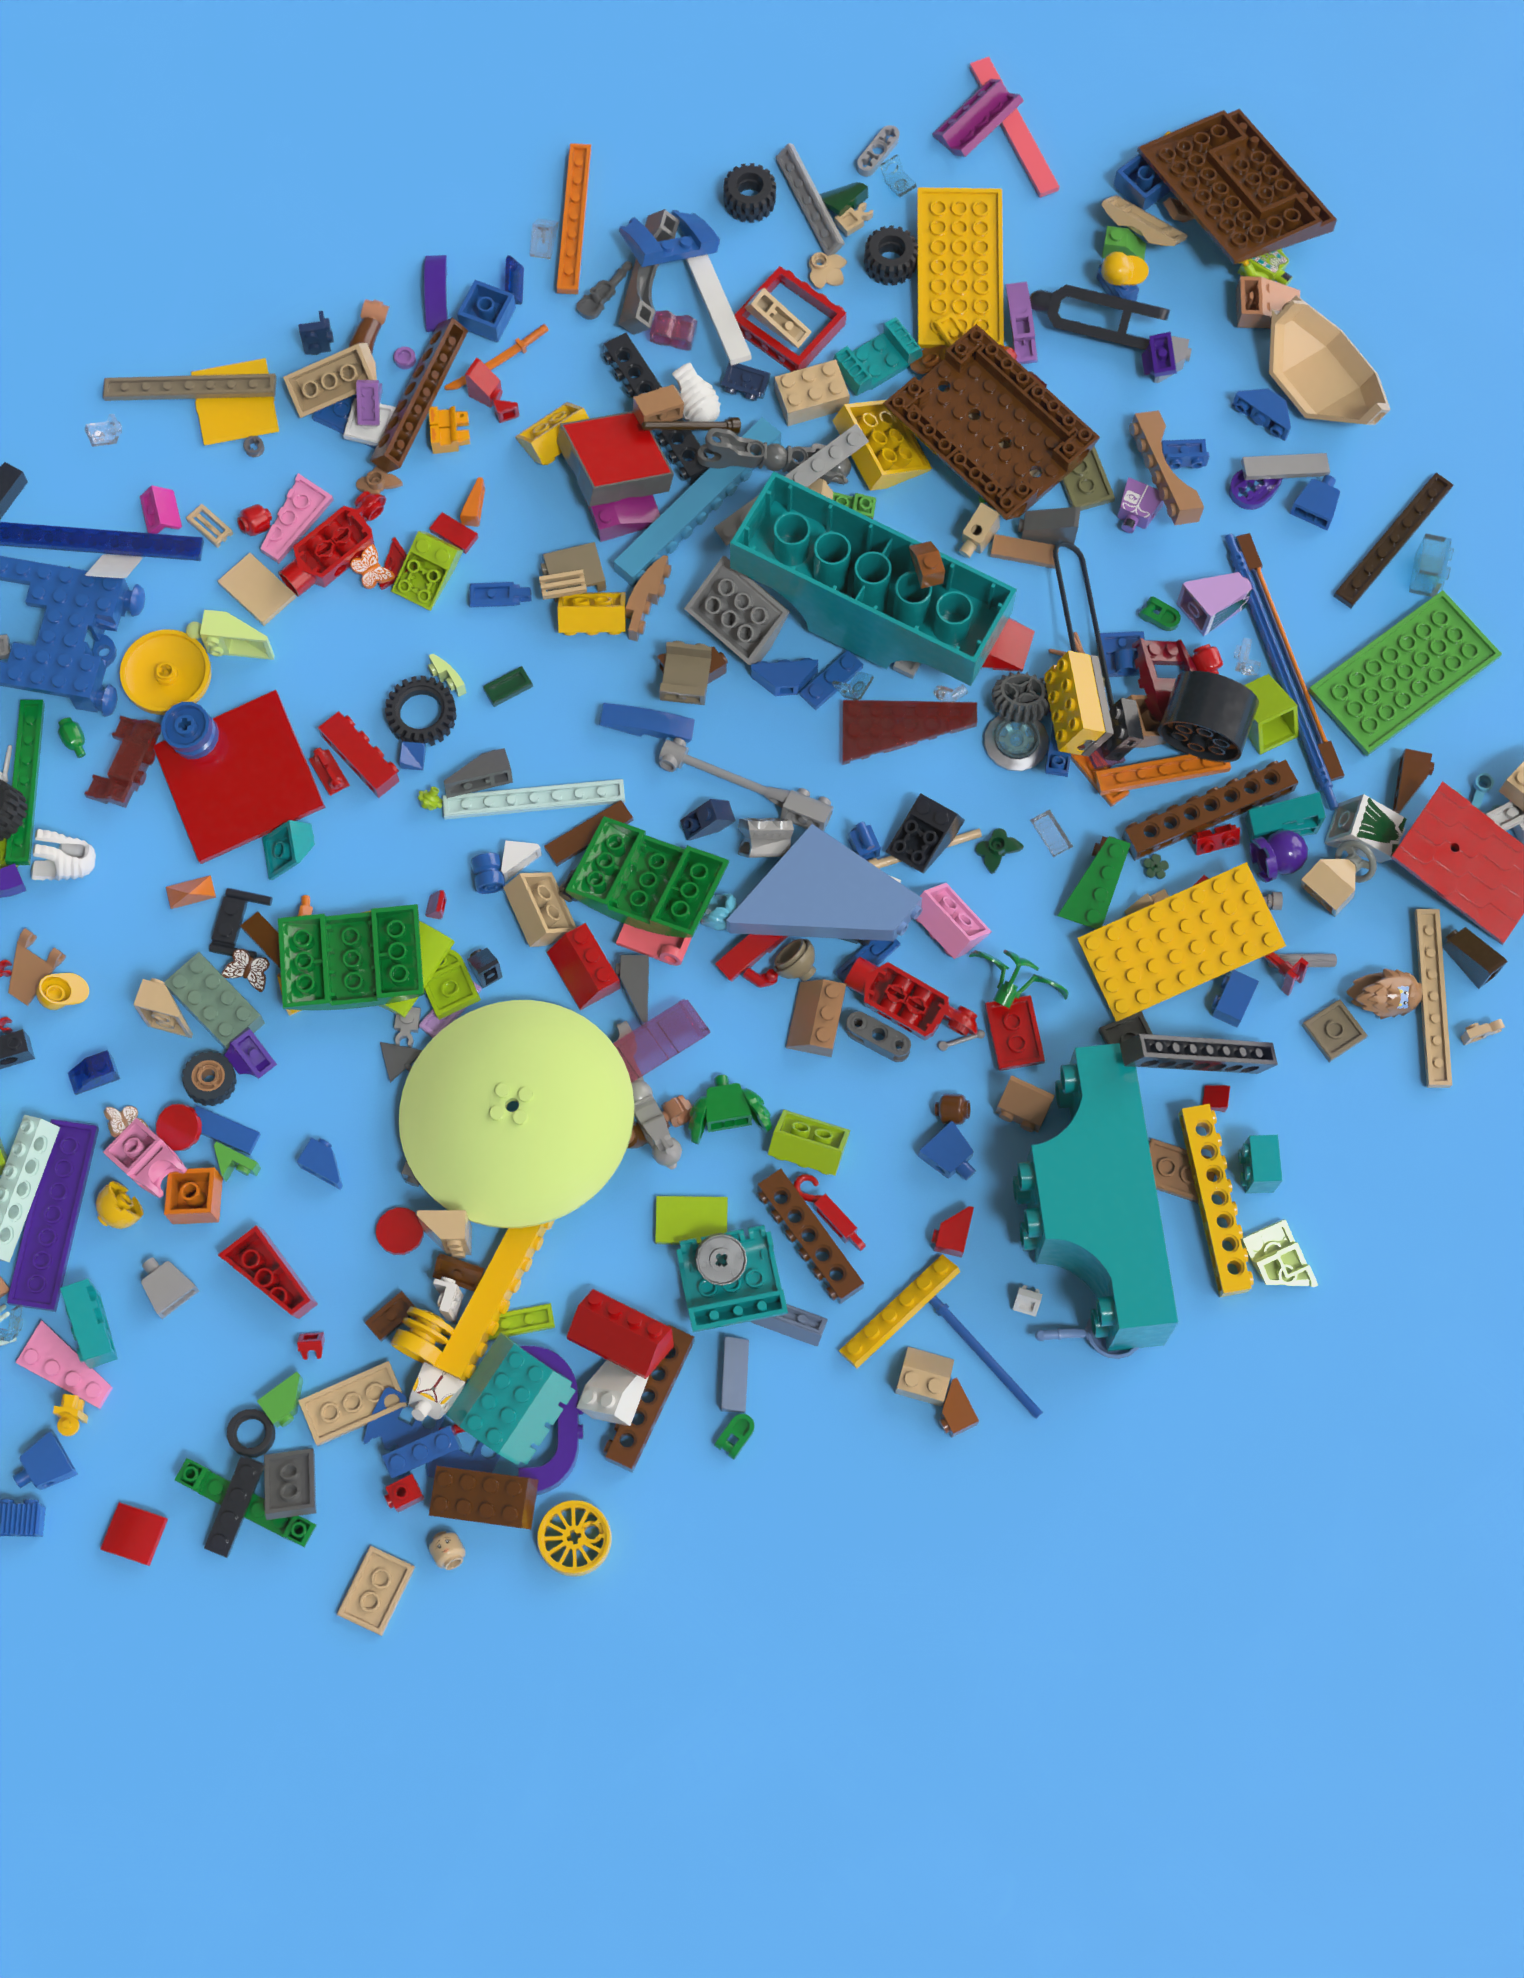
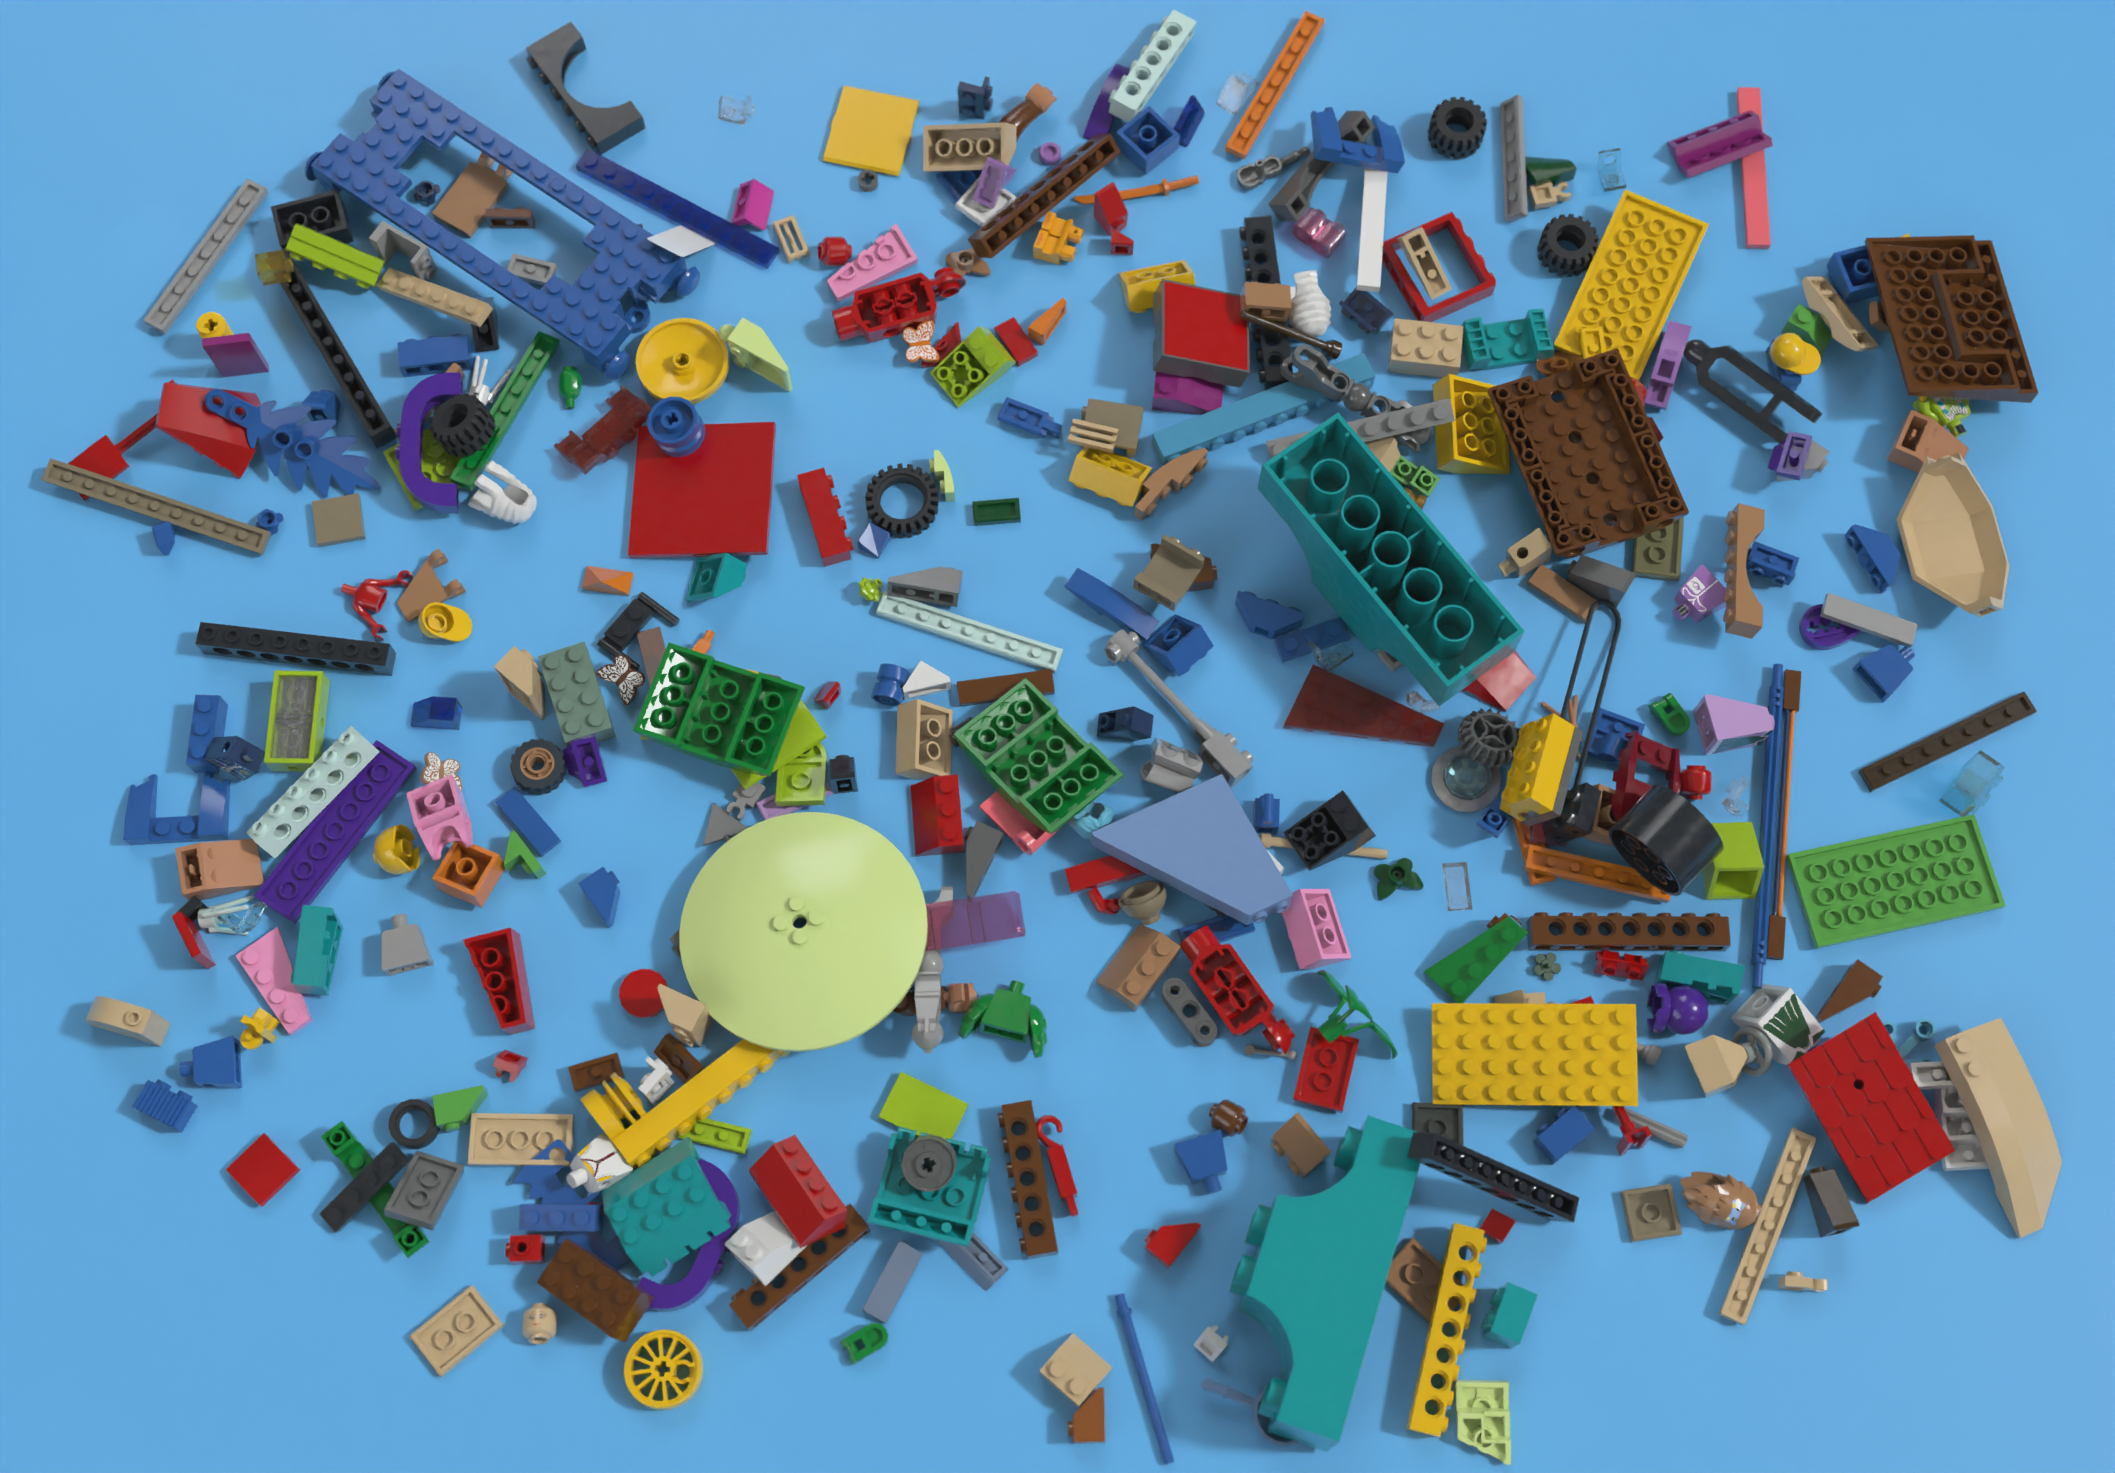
camera: 25 degrees right, 0 degrees up
(179, 1127) = (488, 800): red tile -> none
(189, 387) = (835, 99): dark tan tile -> none
(256, 589) = (806, 318): tan tile -> none
(328, 771) = (789, 521): red hinge -> none
(460, 244) = (1152, 66): none -> light aqua brick
(721, 732) = (1178, 644): none -> blue slope
(738, 612) = (1247, 535): light grey slope -> none
(808, 1142) = (1072, 1086): lime slope -> none
(828, 272) = (1500, 236): tan plate -> none
(877, 159) = (1610, 129): light grey beam -> none
(899, 1311) = (1081, 1294): yellow plate -> none
(927, 564) = (1445, 568): dark orange slope -> none

